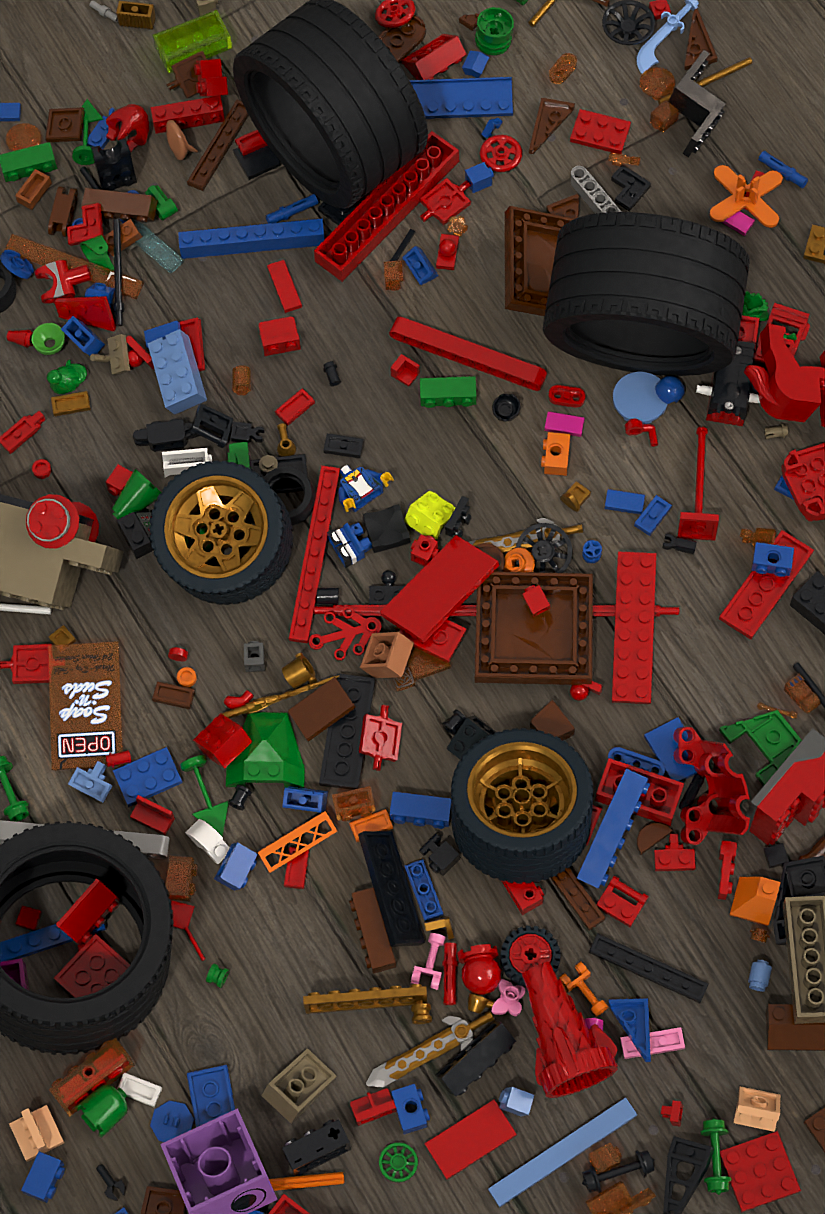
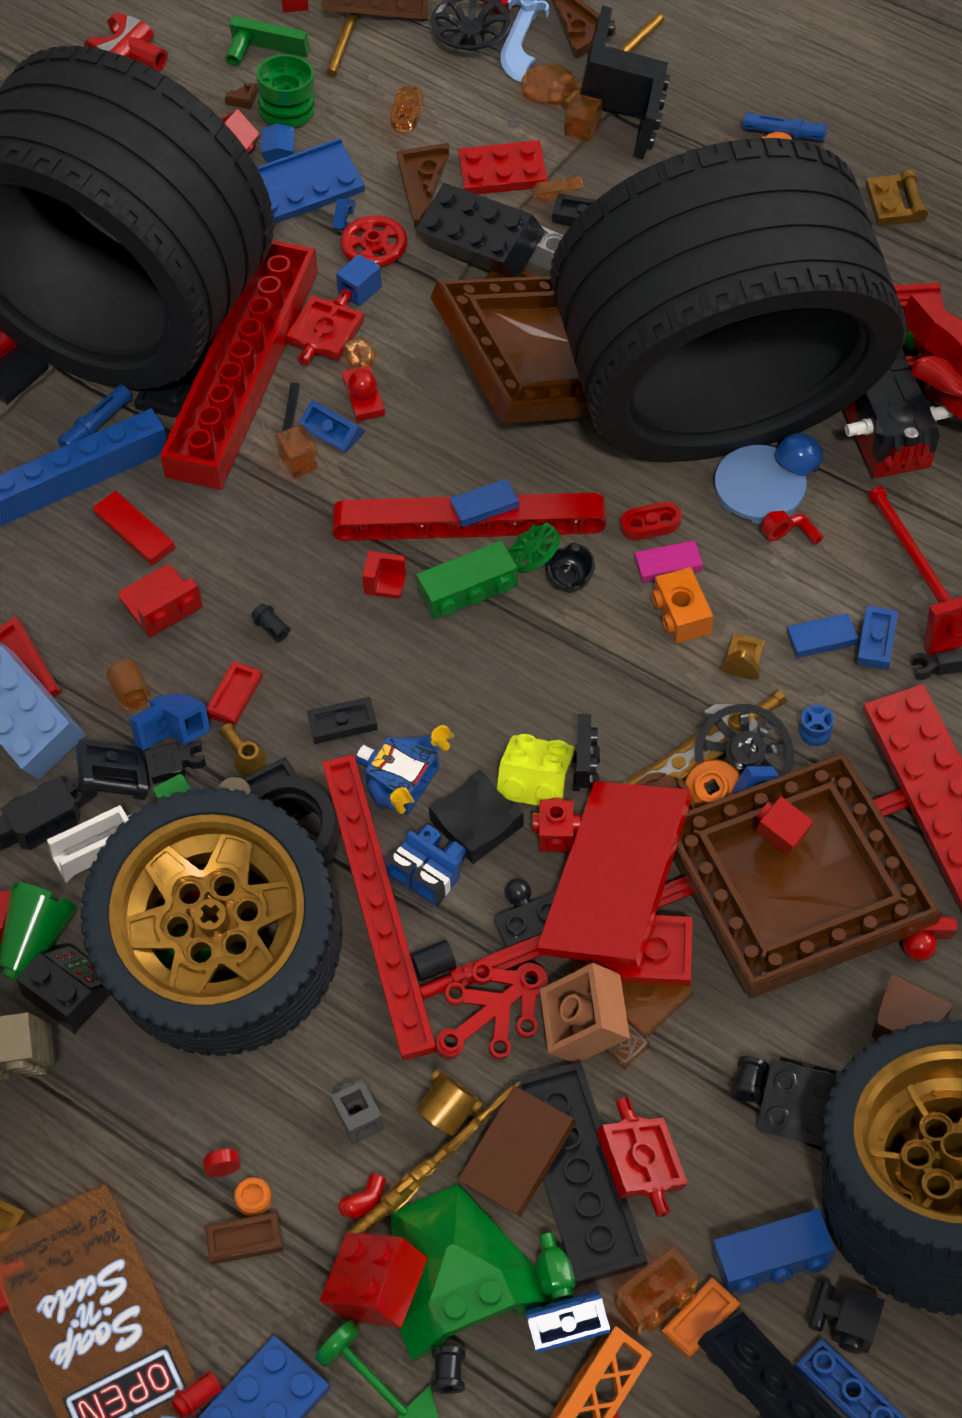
camera: 25 degrees left, 10 degrees down
(253, 407) = (170, 716): none -> blue brick
(312, 773) = (554, 1270): none -> green plant
(477, 350) = (484, 502): none -> blue tile
(492, 387) = (535, 547): none -> green wheel
(539, 567) = (753, 776): none -> blue plate
(559, 175) = (480, 230): none -> black brick

